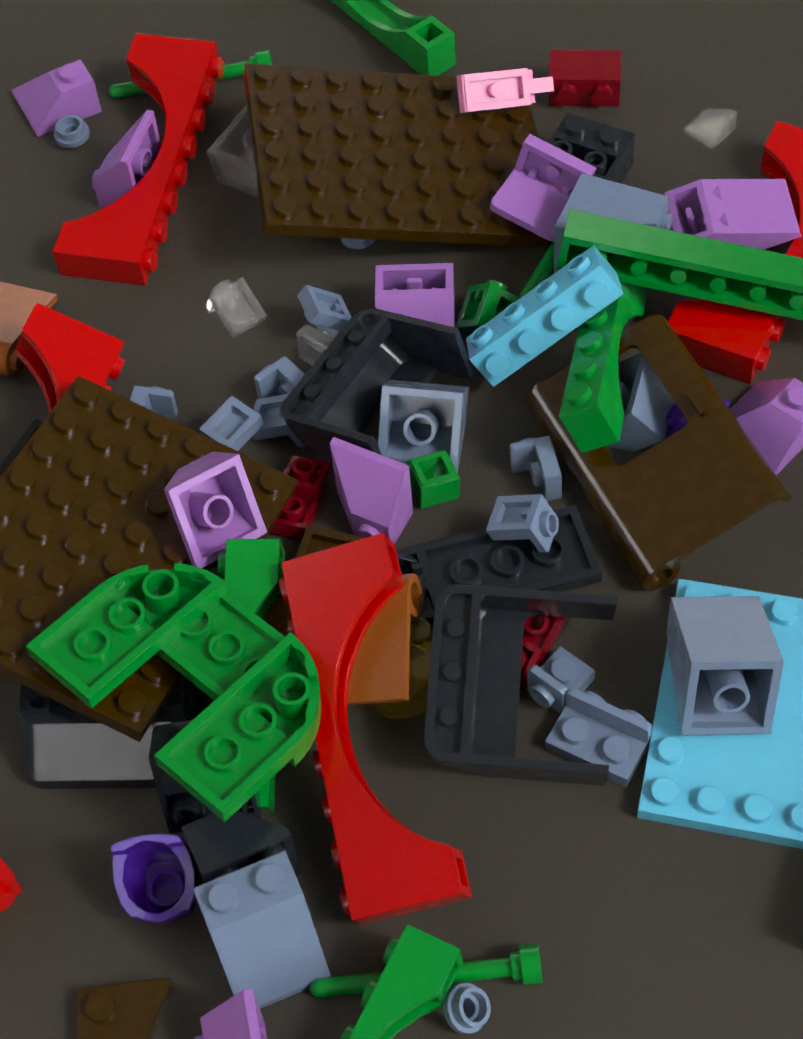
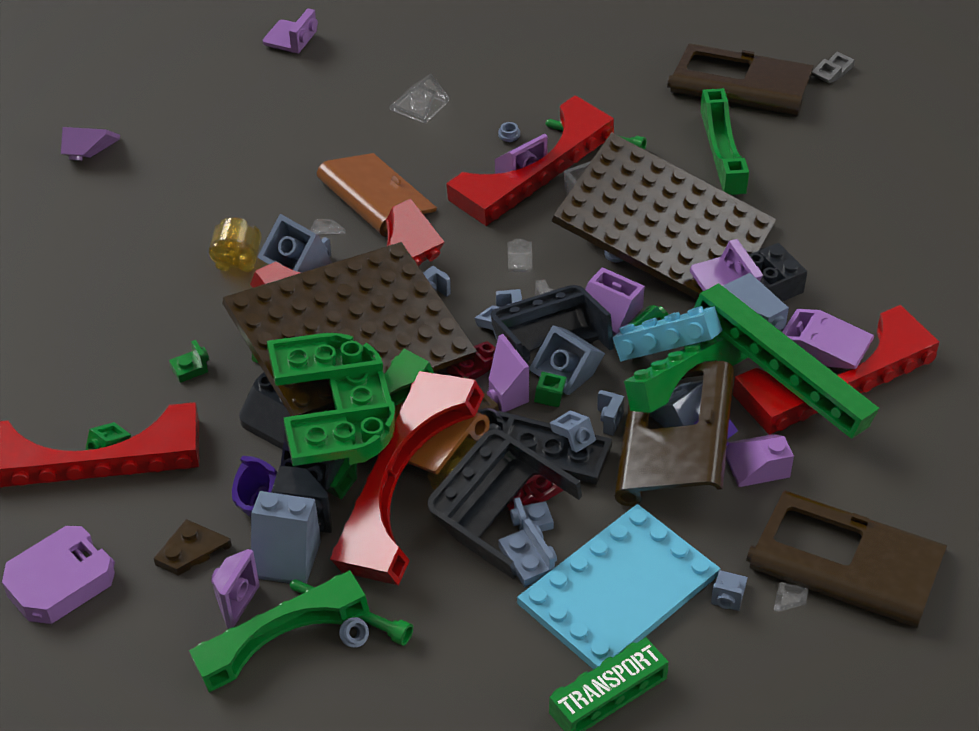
camera: 30 degrees right, 10 degrees down
(58, 94) = (517, 109): medium lavender slope -> none
(213, 504) = (412, 330): medium lavender slope -> none
(232, 424) = (466, 309): sand blue bracket -> none
(324, 309) = (559, 275): sand blue bracket -> none
(500, 89) = (750, 213): bright pink hinge -> none
(585, 78) = (812, 232): dark red brick -> none
(712, 126) = (867, 294): clear slope -> none
(723, 665) = (614, 549): sand blue slope -> none

